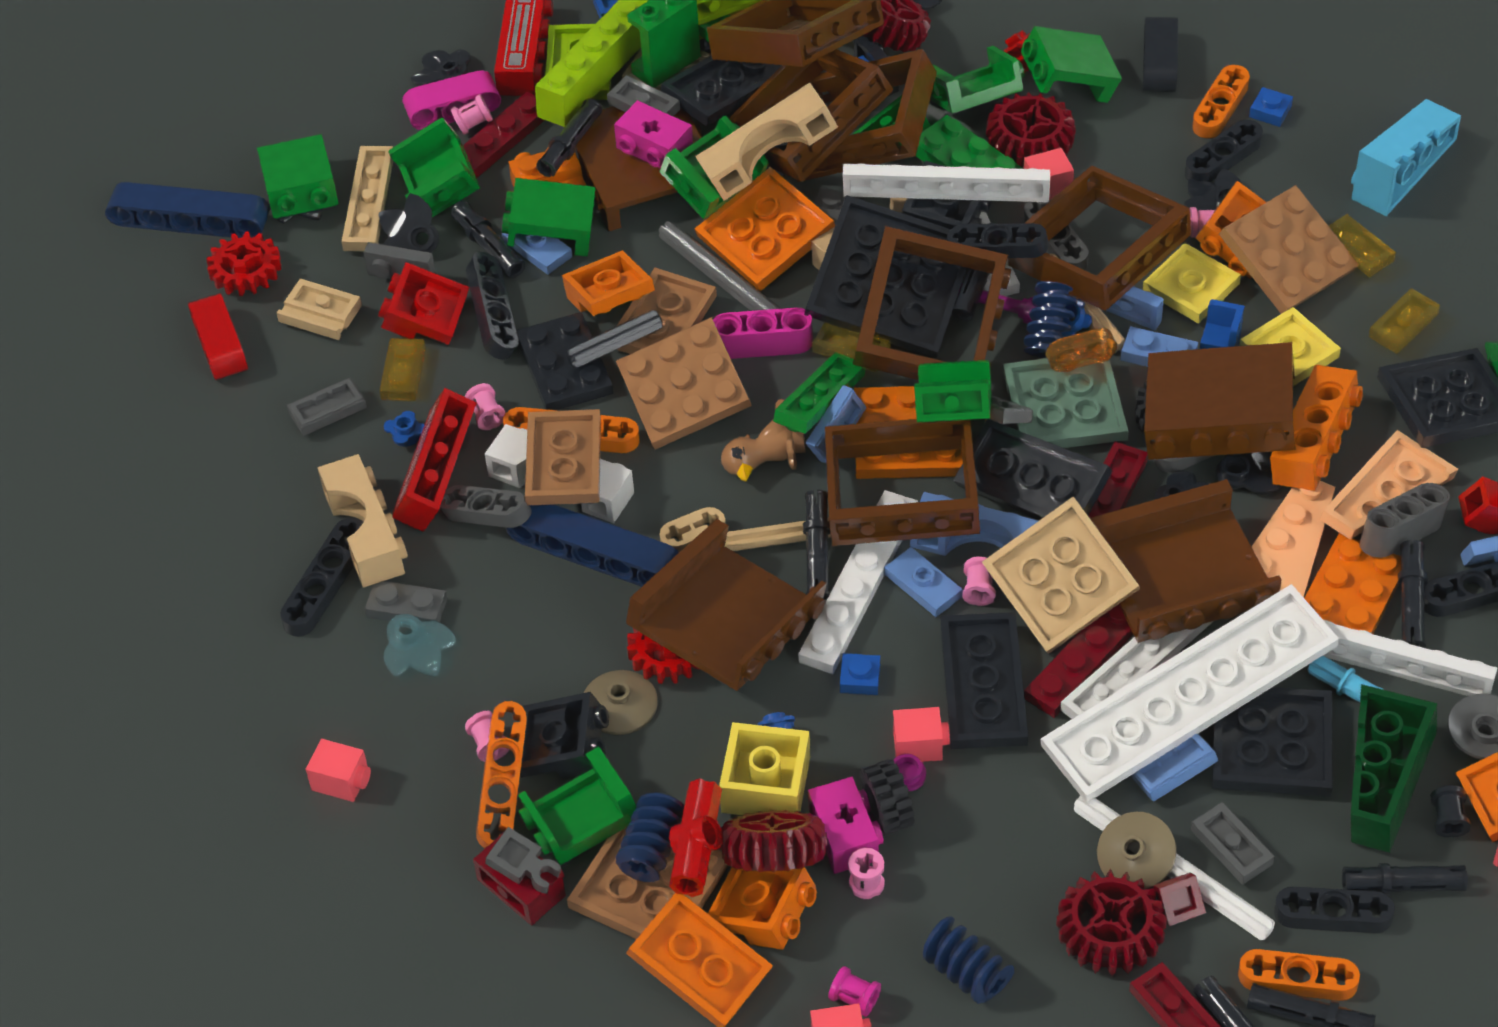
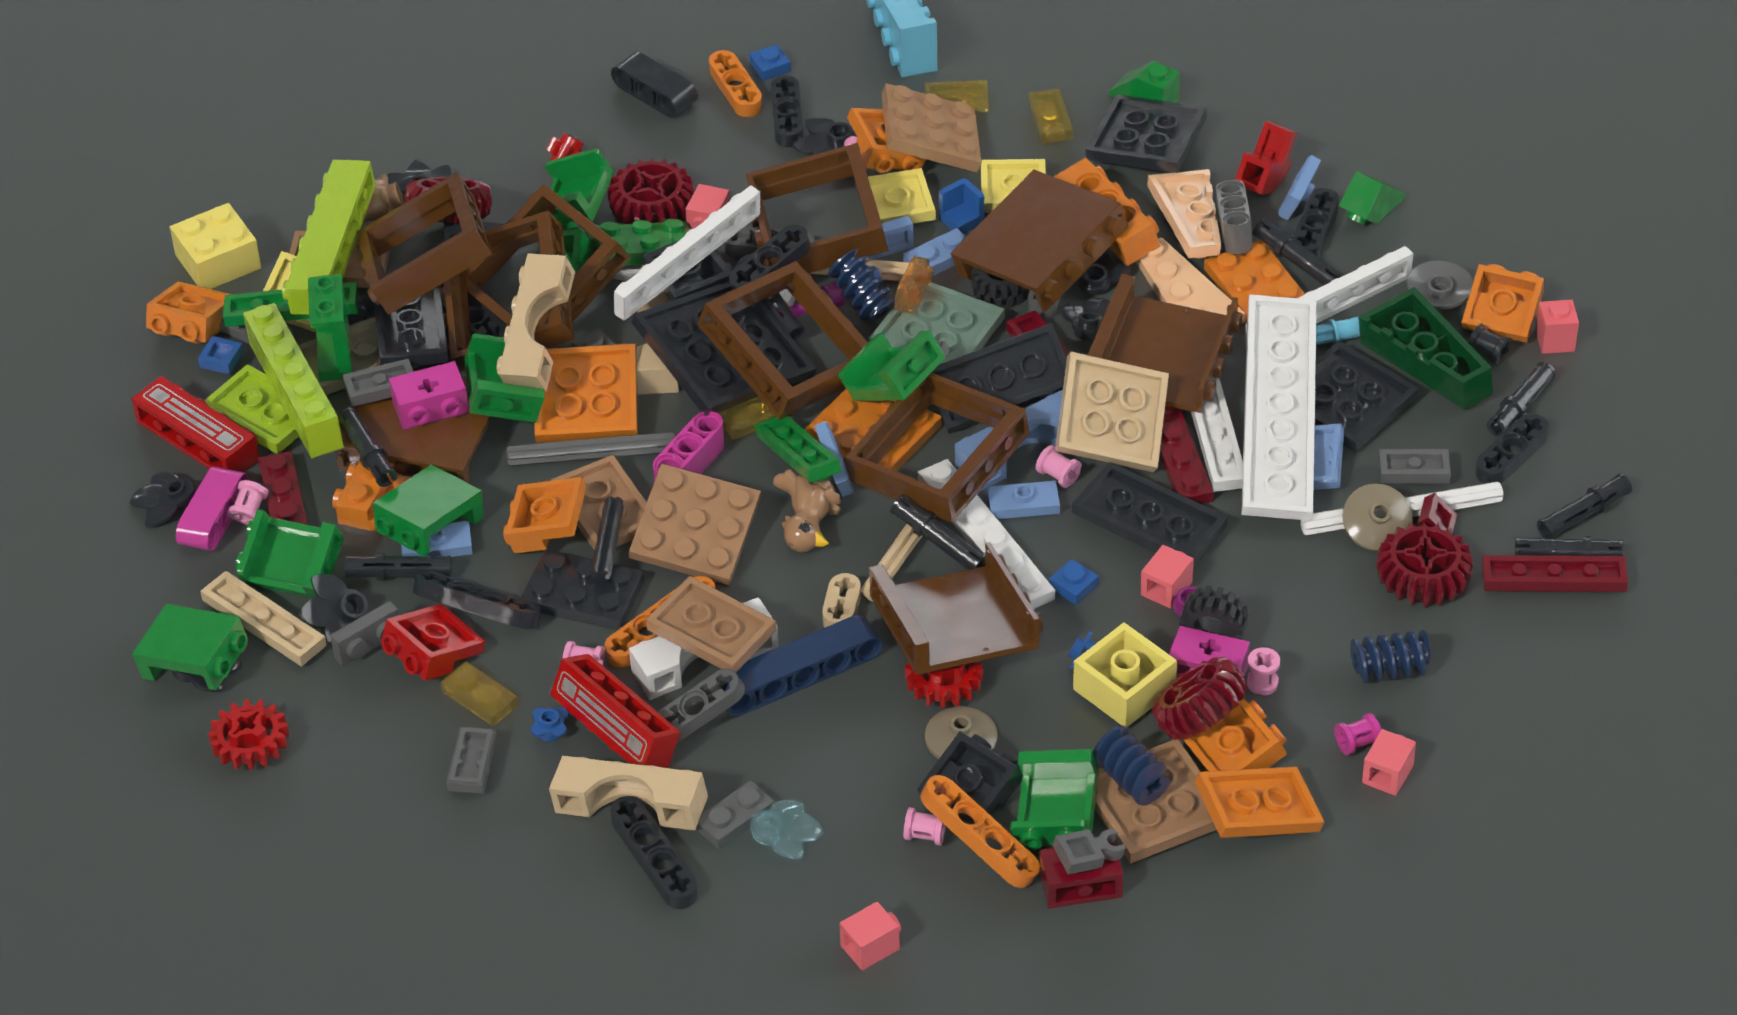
camera: 55 degrees left, 5 degrees down
(186, 210) = (138, 744): dark blue beam -> none
(218, 336) = (313, 792): red beam -> none
(319, 309) = (356, 711): tan plate -> none
(695, 838) = (1167, 732): red piece -> none
(1070, 58) = (617, 130): green panel -> none
(1311, 963) = (1553, 484): orange beam -> none

